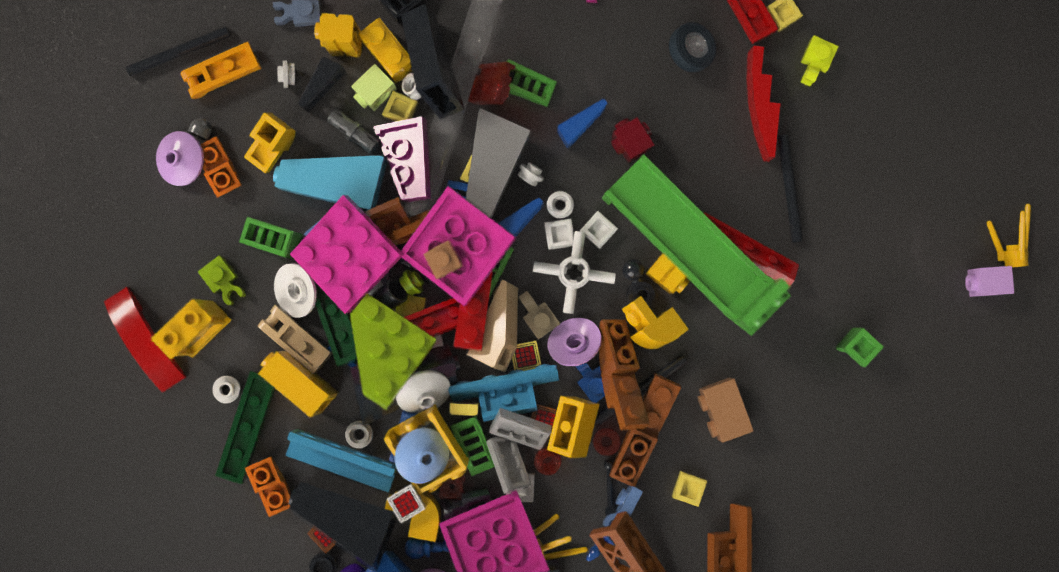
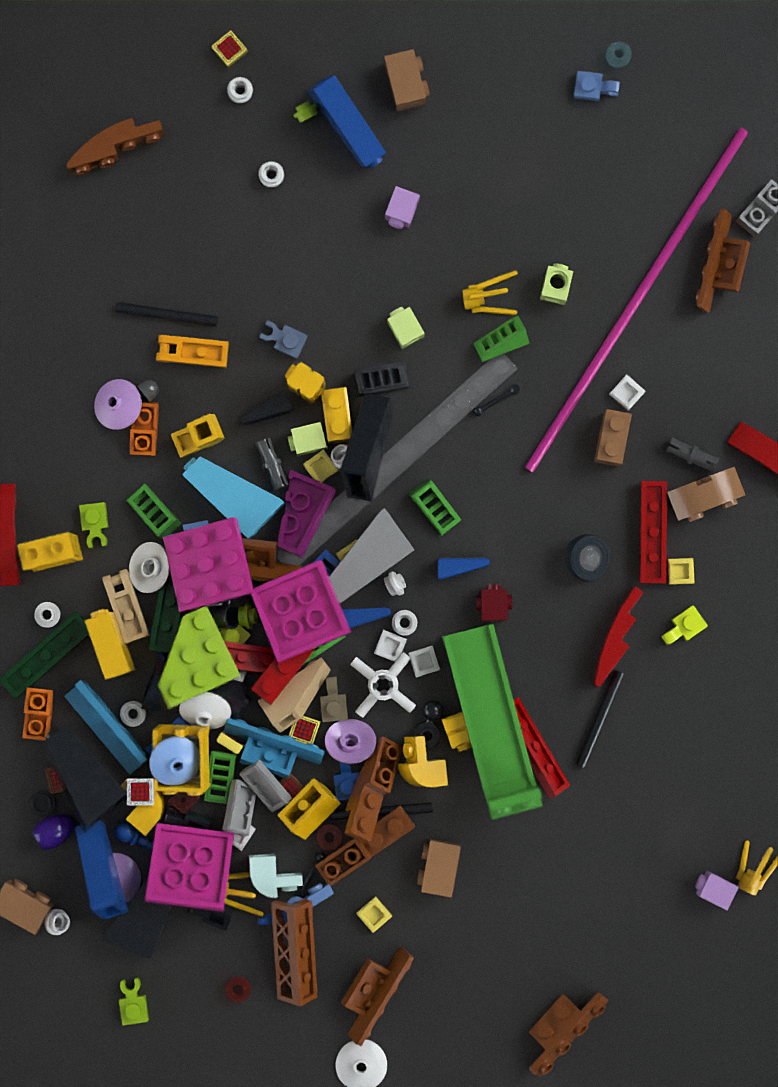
camera: 25 degrees right, 0 degrees up
(286, 74) = (244, 386): white plate -> none
(443, 259) = (282, 616): medium nougat plate -> none
(492, 84) = (405, 493): clear red plate -> none
(547, 468) = (268, 830): clear red plate -> none
(571, 515) = (264, 877): none -> light aqua brick
(860, 346) = (578, 880): bright green panel -> none
(921, 492) = (560, 1027): none -> dark orange bracket

